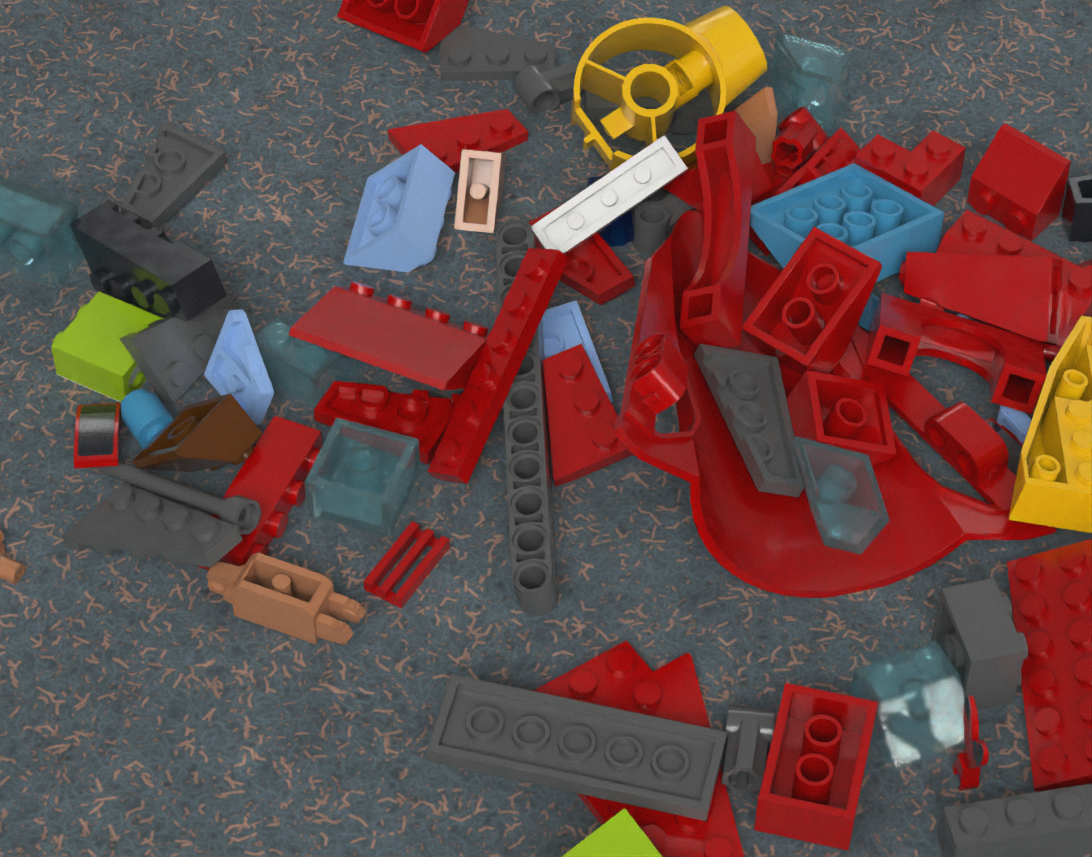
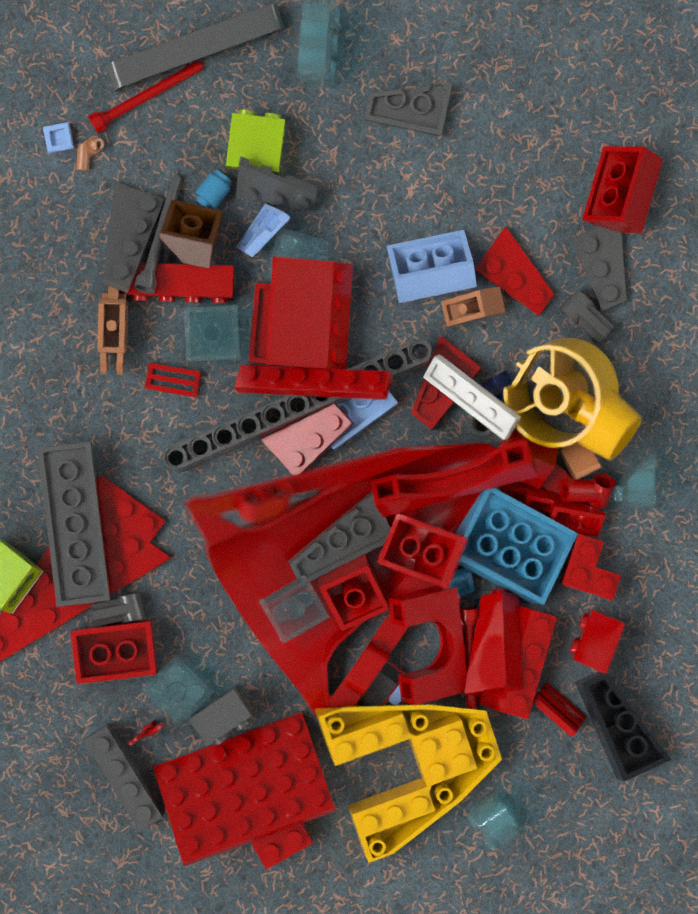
camera: 65 degrees right, 40 degrees up
(97, 435) = (190, 167): slope -> none
(145, 264) = (304, 143): black wedge -> none

